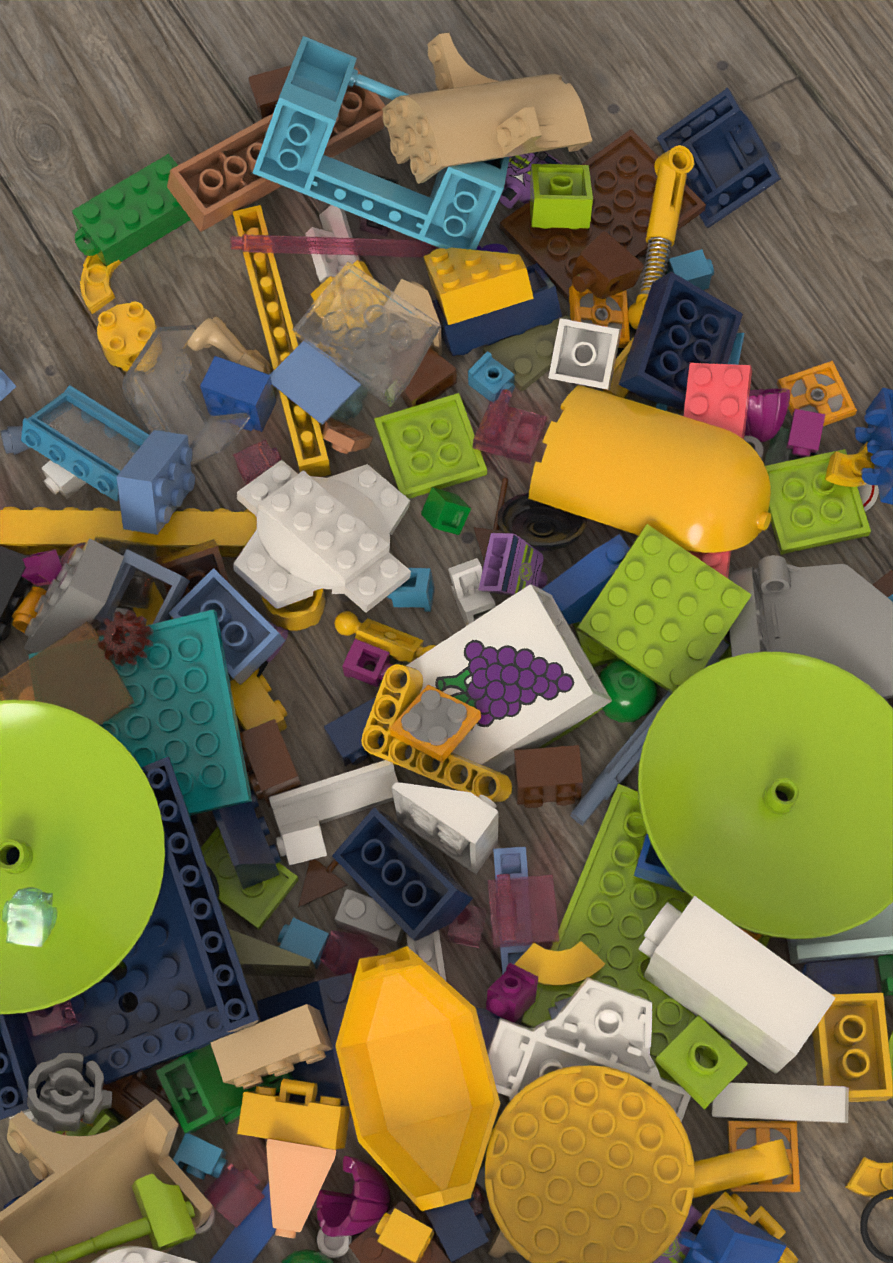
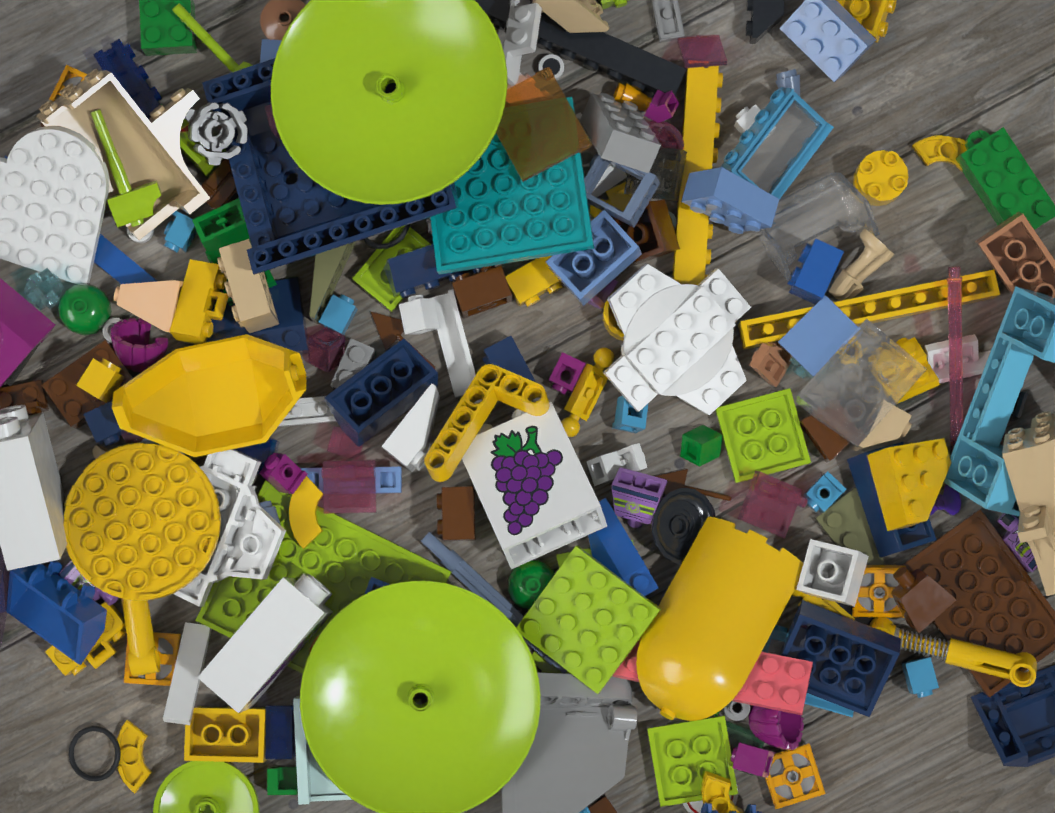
camera: 90 degrees right, 15 degrees up
(29, 917) = (334, 101): clear light blue brick -> none
(116, 633) = (561, 175): clear red gear -> none
(235, 1194) = (150, 257): clear pink brick -> none
(256, 460) = (753, 287): clear pink brick -> none
(435, 723) = (494, 422): piece -> none
(560, 196) = (997, 564): lime slope -> none
(701, 1082) = (217, 599): lime piece -> none

